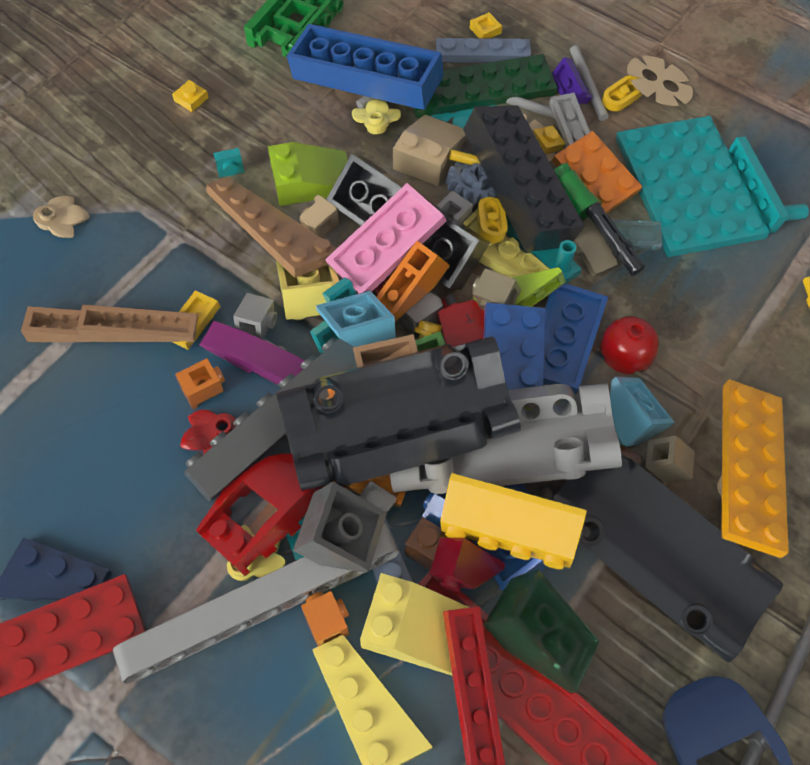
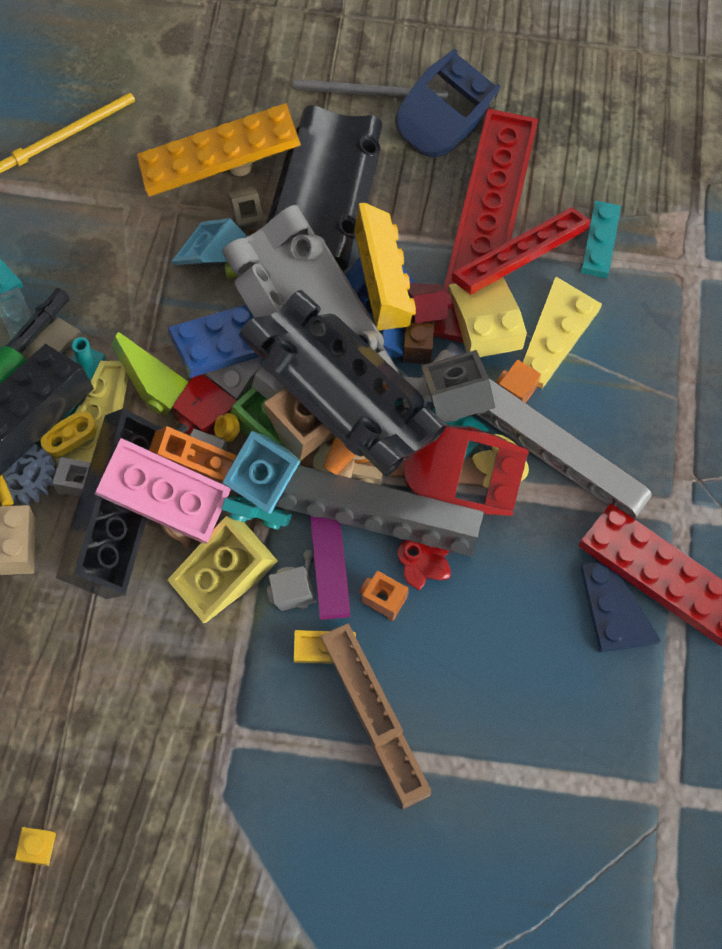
camera: 120 degrees left, 5 degrees up
(60, 216) = (272, 864): tan plate -> none
(229, 162) = (119, 730): teal plate -> none
(276, 232) = (189, 615): medium nougat wing -> none
(304, 171) = (89, 643): lime slope -> none
(320, 217) = (146, 598): tan brick -> none
(495, 289) = (166, 380): dark tan brick -> none
(542, 630) = (436, 239): clear green slope -> none
(570, 331) = (149, 322): blue plate -> none
(629, 345) = (144, 277): red cylinder -> none

